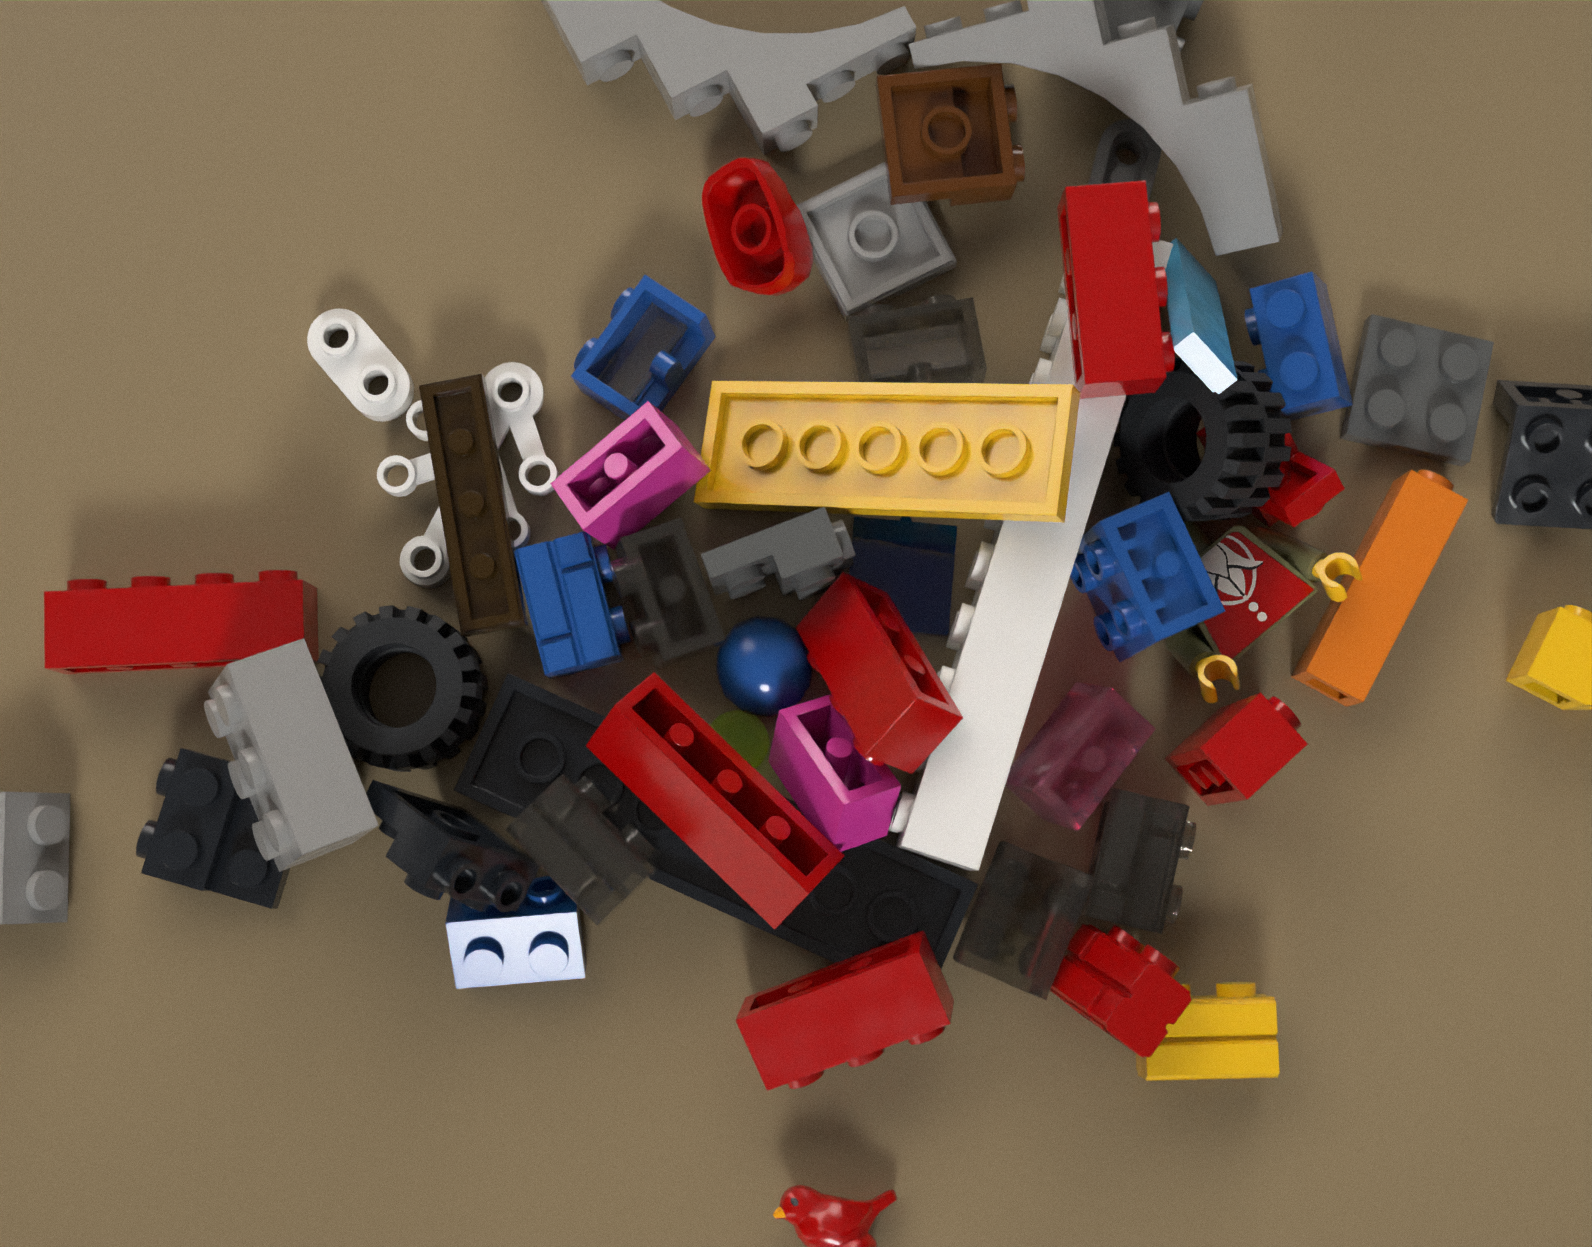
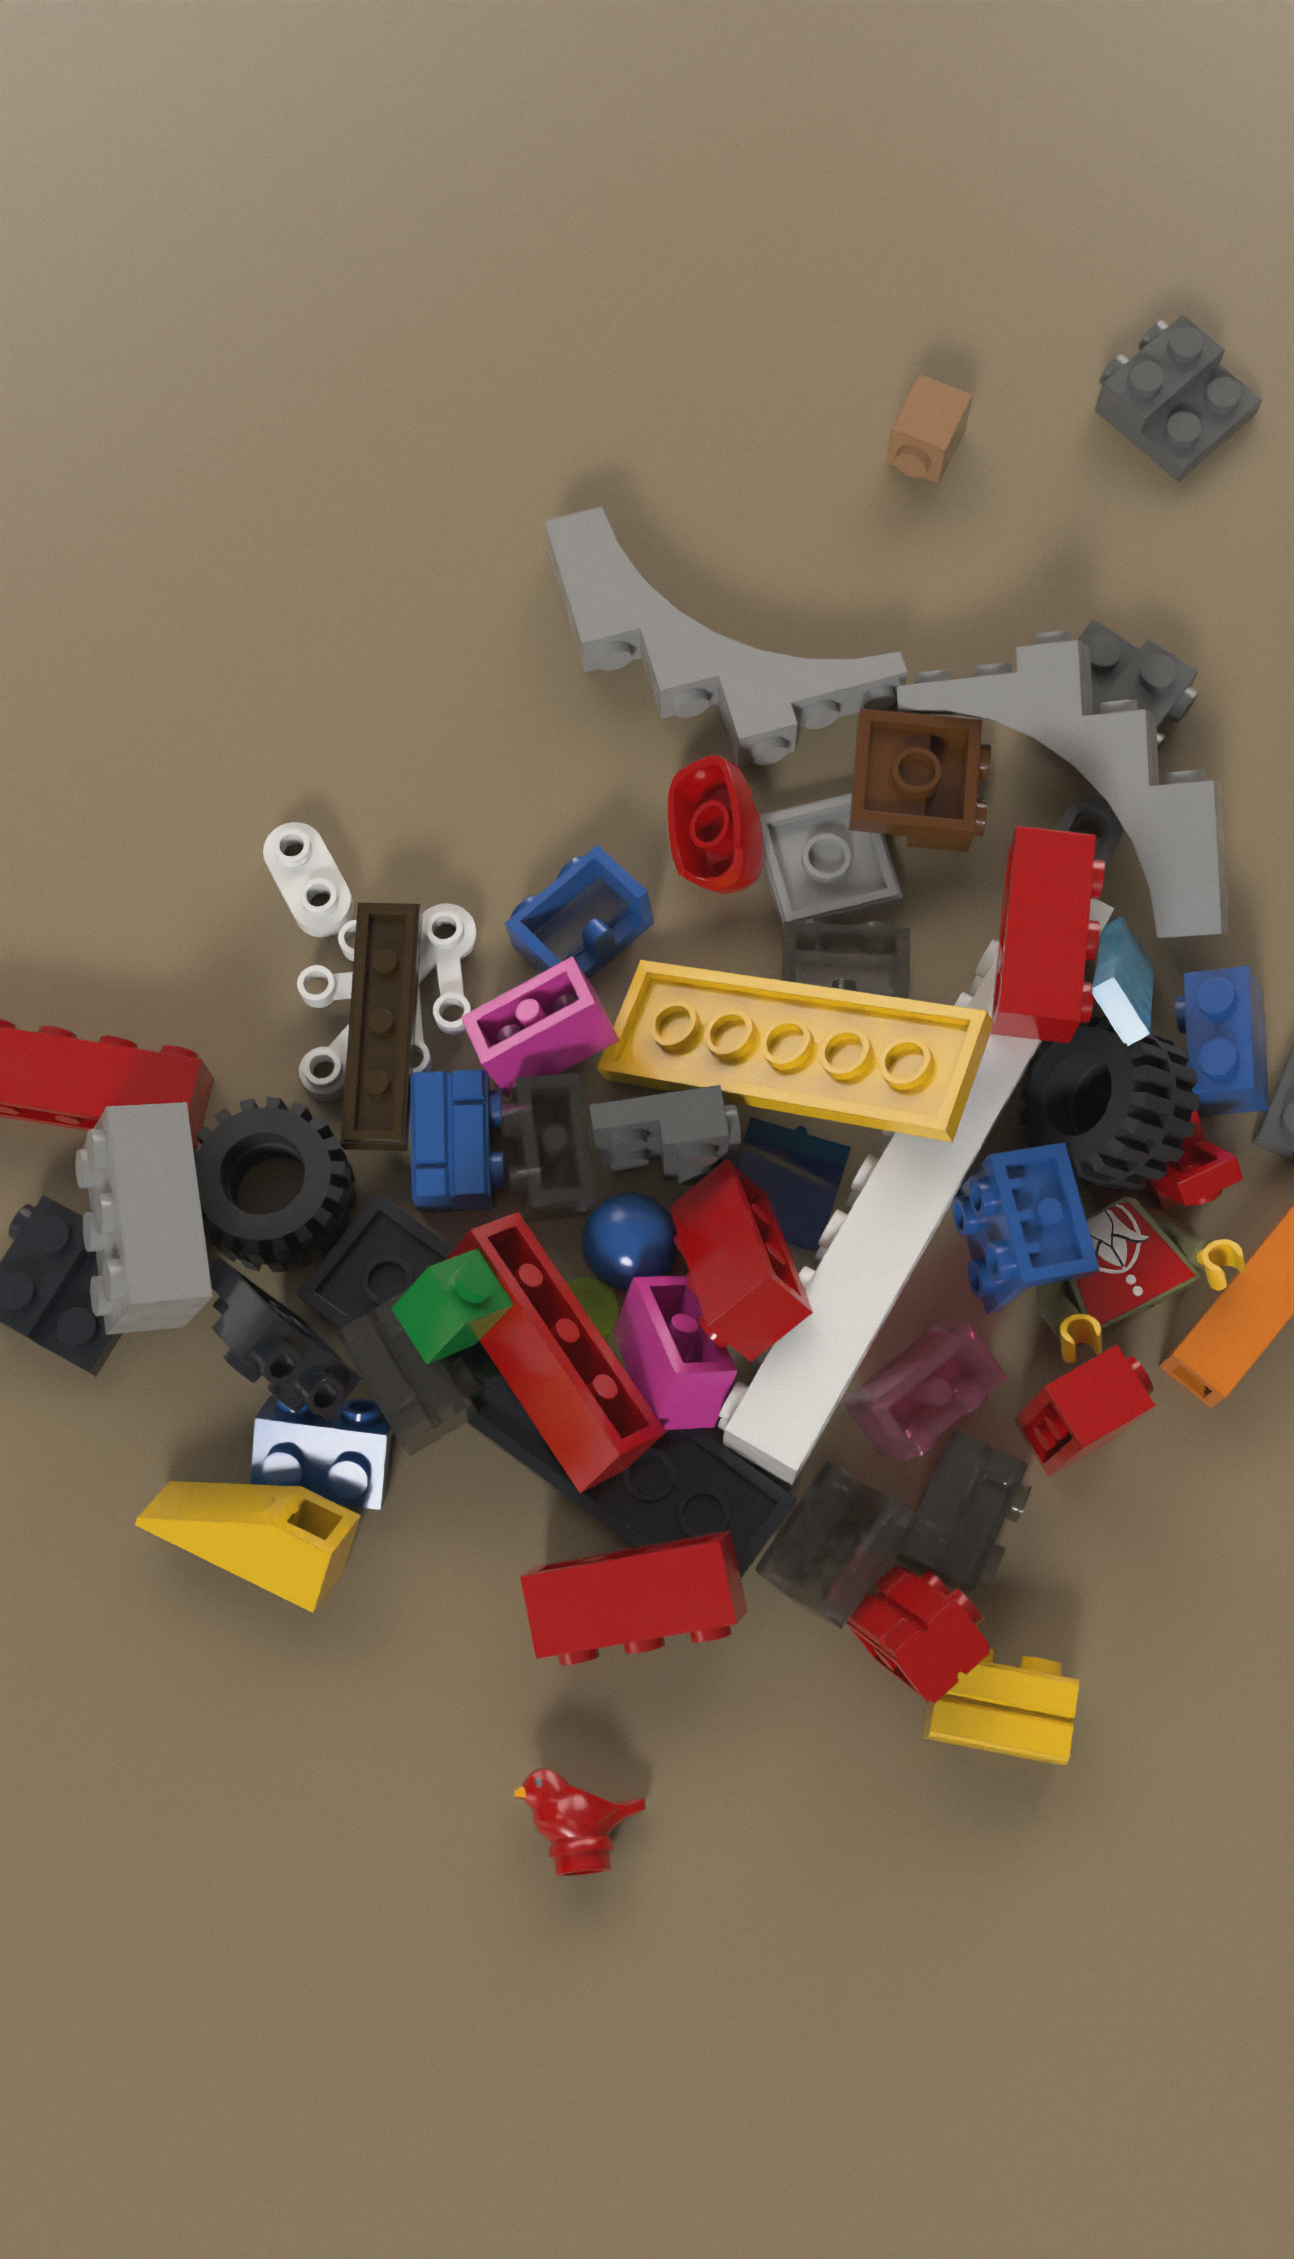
camera: 15 degrees right, 10 degrees down
(474, 1028) = (263, 1533): none -> yellow slope
(613, 782) = (452, 1306): none -> green brick

